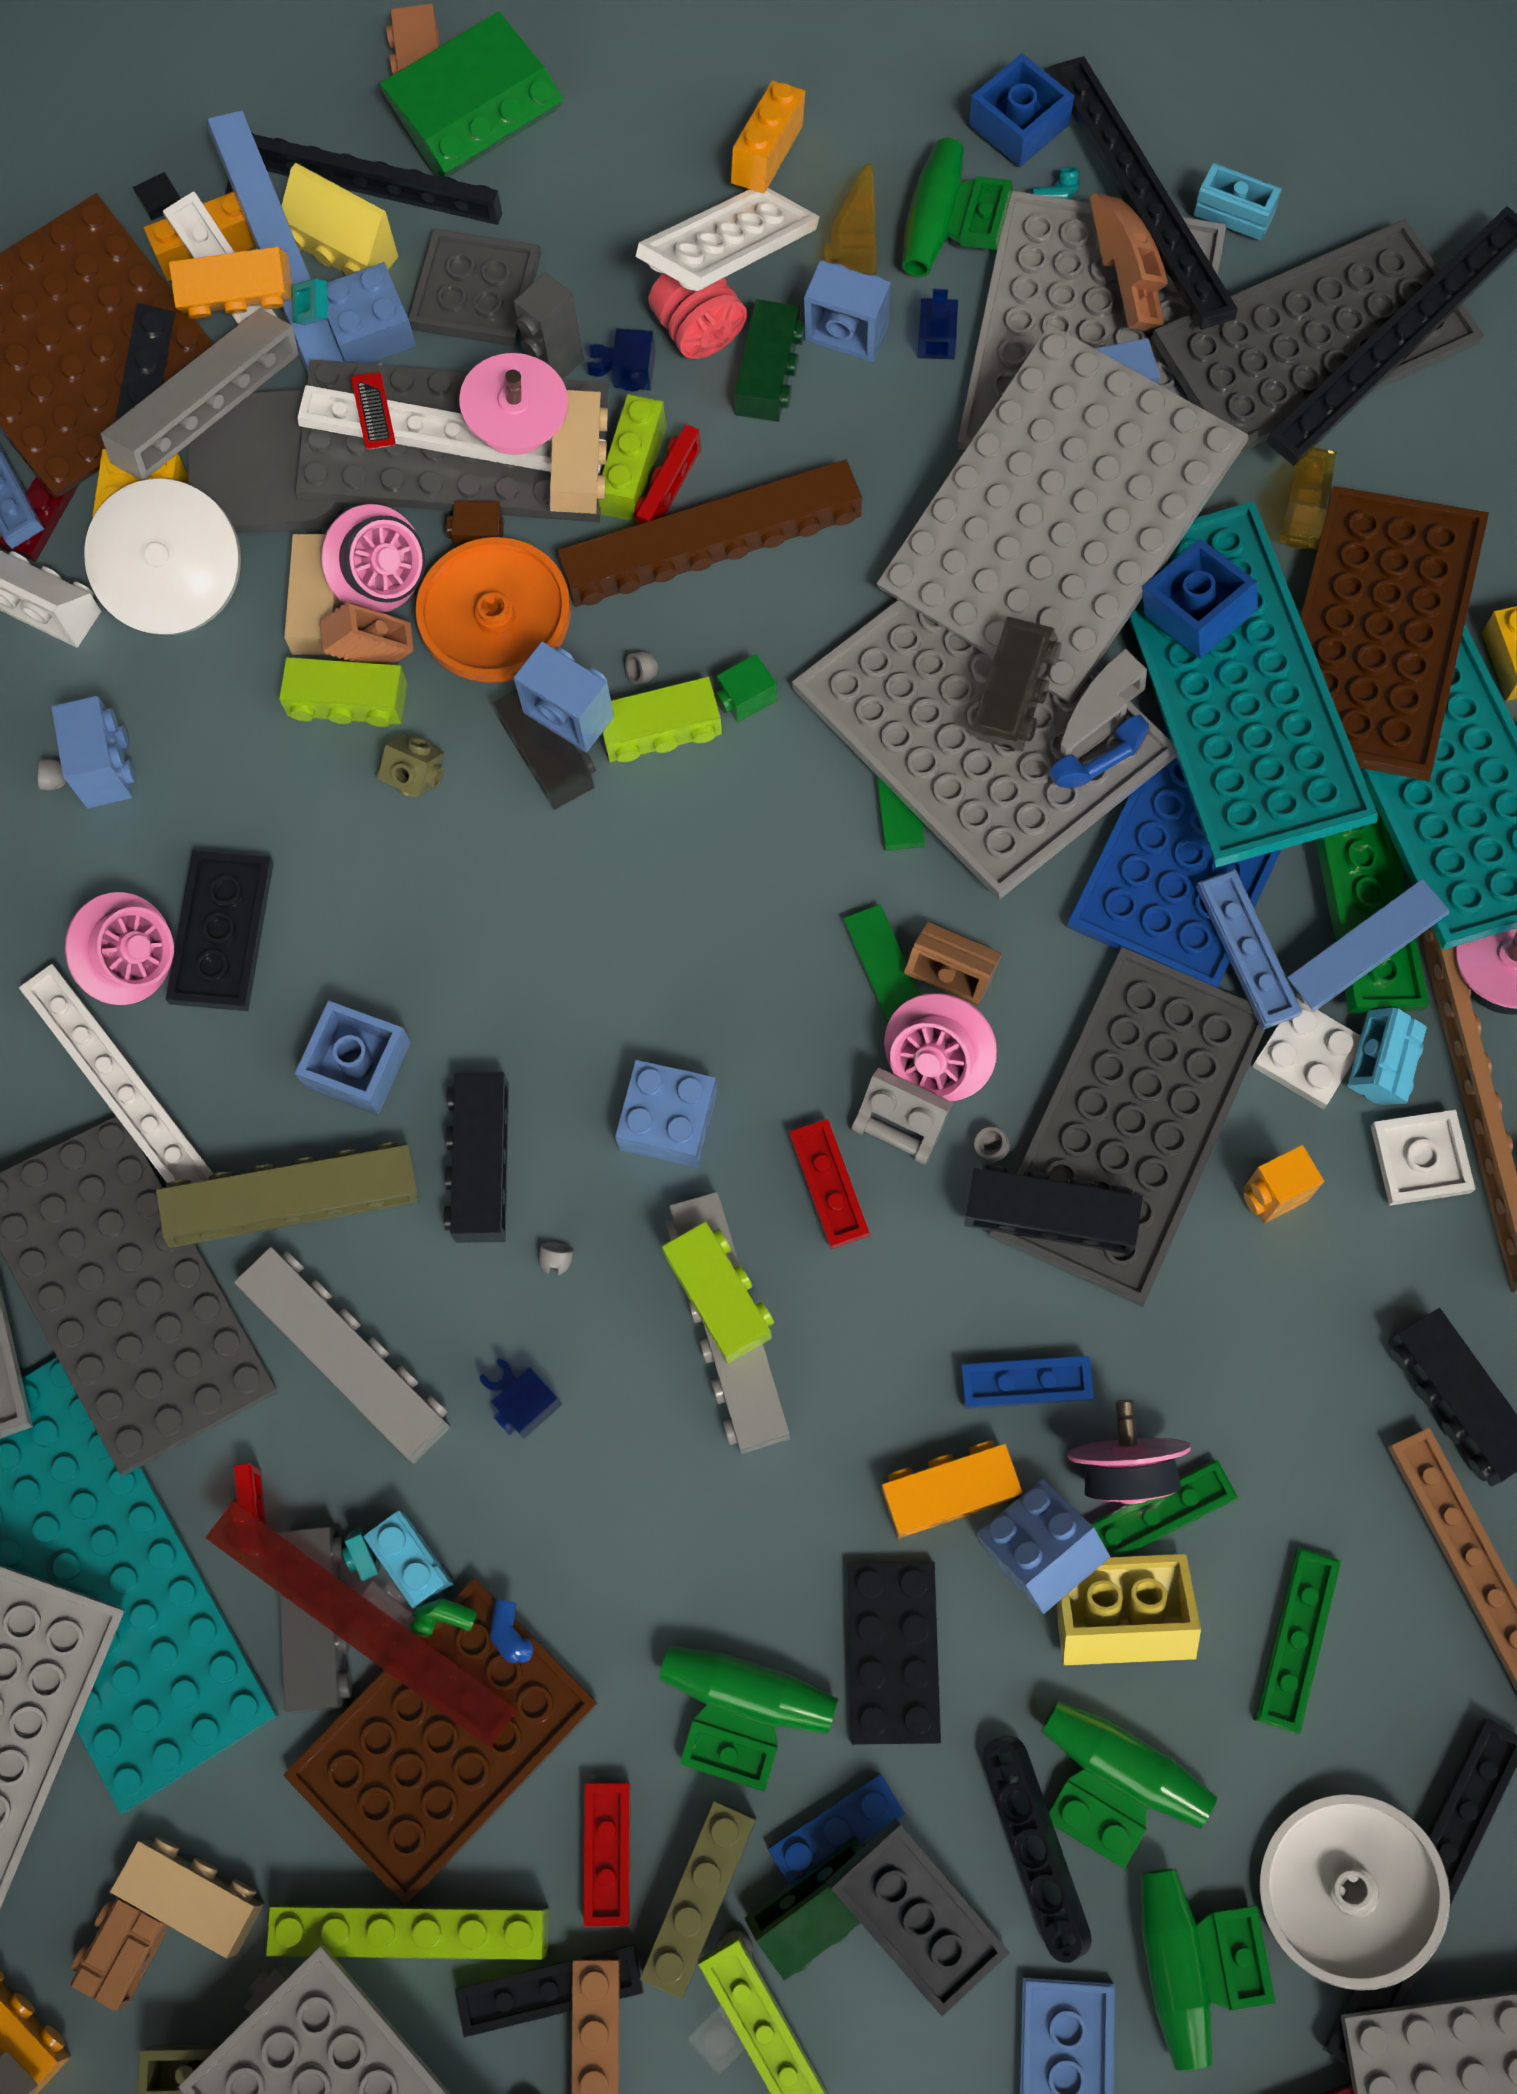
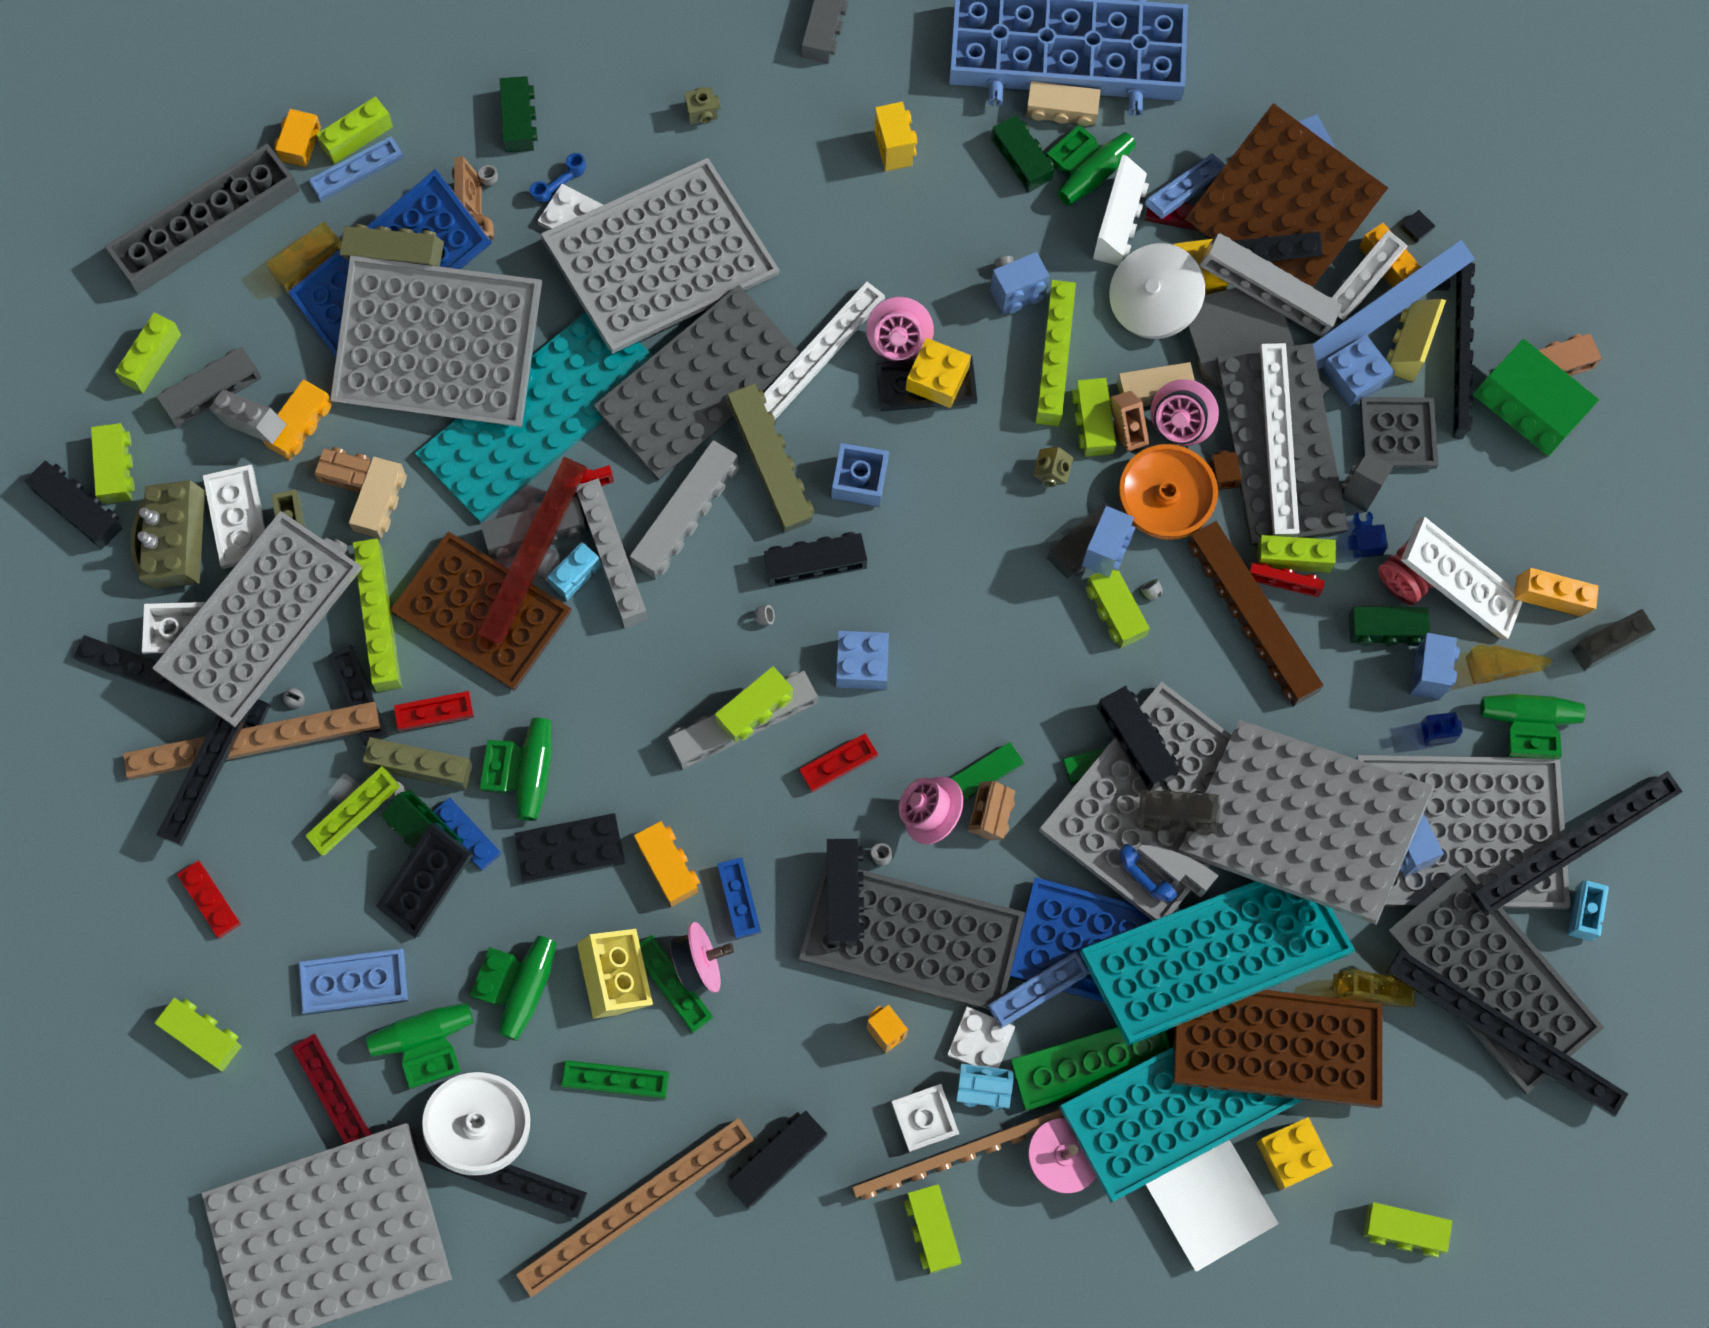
camera: 70 degrees right, 0 degrees up
(212, 901) = (938, 372): none -> yellow brick
(223, 726) = (1055, 353): none -> lime brick
(231, 282) = (1351, 284): light orange brick -> none
(309, 301) = (1351, 333): teal plate -> none
(359, 1554) = (571, 542): teal plate -> none
(373, 410) = (1279, 387): sticker -> none
(388, 1489) = (611, 553): none -> light grey brick
(441, 1612) = (548, 594): green arm -> none
(505, 1637) = (539, 630): blue arm -> none
(513, 402) = (1299, 467): bright pink piece -> none
(522, 1401) = (676, 614): clear blue brick -> none
(577, 455) = (1281, 515): tan brick -> none
(746, 688) = (1150, 654): green brick -> none
(850, 87) = (1613, 639): none -> clear smoke brick
(883, 724) = (1138, 738): none -> black brick
(906, 1106) = (893, 796): light grey plate -> none
(1020, 109) = (1623, 754): blue brick -> none
(1036, 1871) = (480, 934): black beam -> none
(1043, 1545) = (641, 917): medium blue brick -> none
(1064, 187) = (1573, 795): teal arm -> none
(1132, 251) = (1518, 844): nougat slope -> none
(1200, 598) = (1264, 917): blue brick -> none
(1368, 945) = (1051, 1059): medium blue tile -> none

